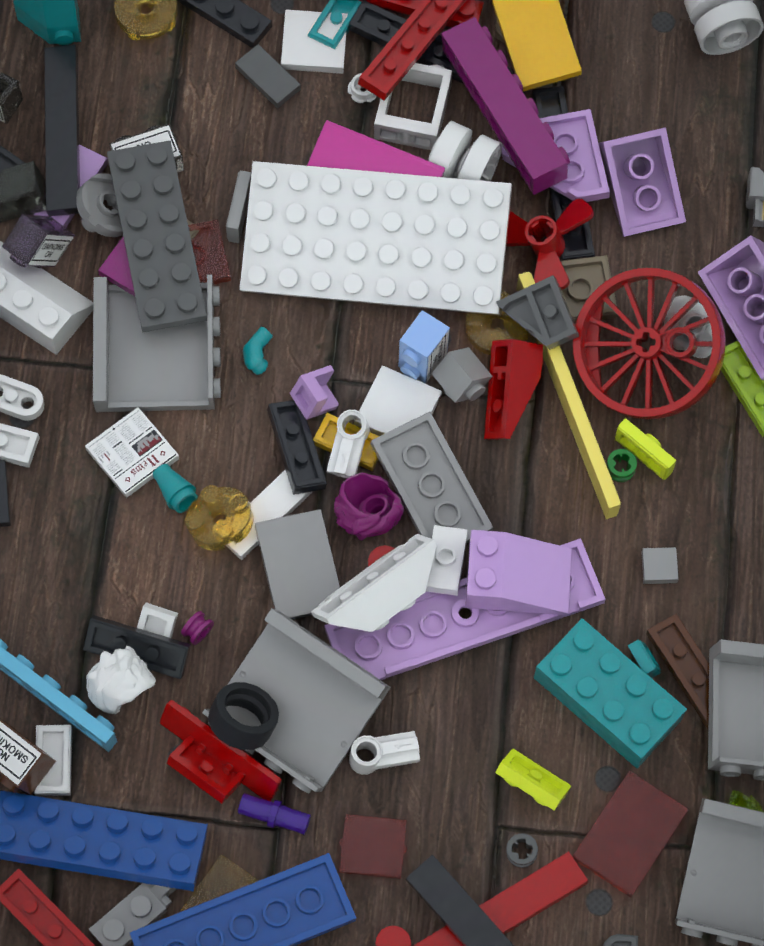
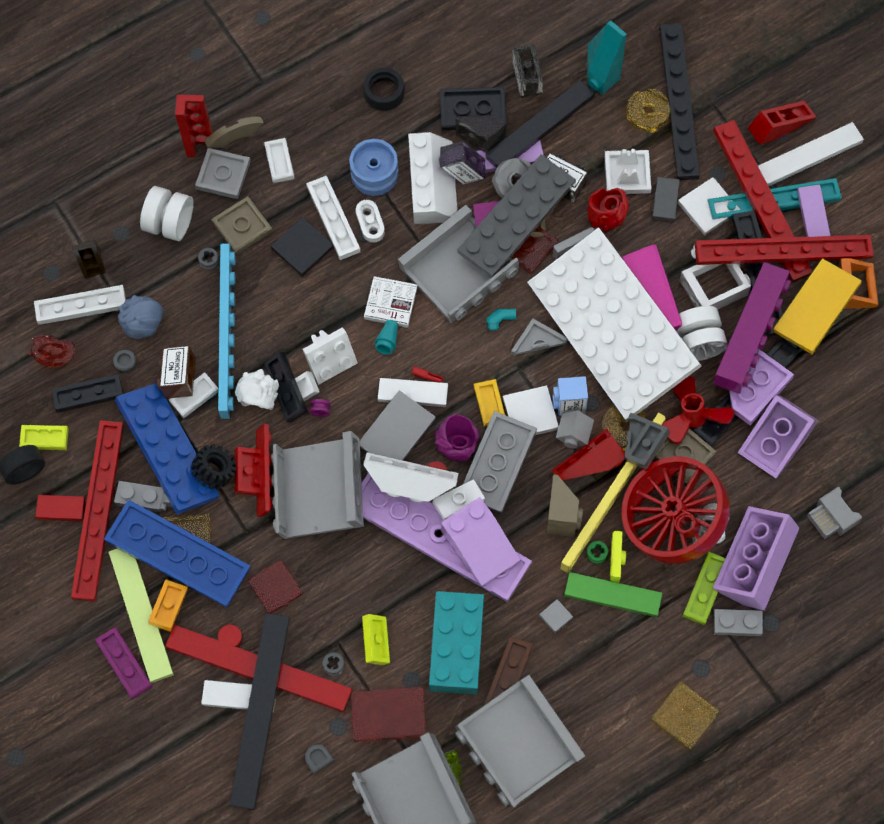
camera: 55 degrees right, 0 degrees up
(144, 564) = (329, 355): none -> white plate
(170, 788) = (208, 475): none -> black tyre
(201, 87) = (628, 171): none -> white plate
(217, 501) = (394, 361): clear yellow plate -> none
(230, 139) = (607, 209): none -> red hair
(252, 699) = (300, 460): black tyre -> none
(258, 481) = (424, 374): none -> red pin
(274, 813) = (251, 523): dark purple pin -> none
(296, 447) = (462, 378): black tile -> none
(313, 394) = (499, 364): lavender panel -> none
(314, 331) = (537, 337): none -> light grey tile
(346, 447) = (481, 403): white piece -> none
(387, 750) = (330, 553): white piece -> none
(547, 458) = (563, 511): none -> dark tan slope
(645, 658) = (492, 647): teal tile -> none
(682, 487) = (613, 594): none -> bright green tile

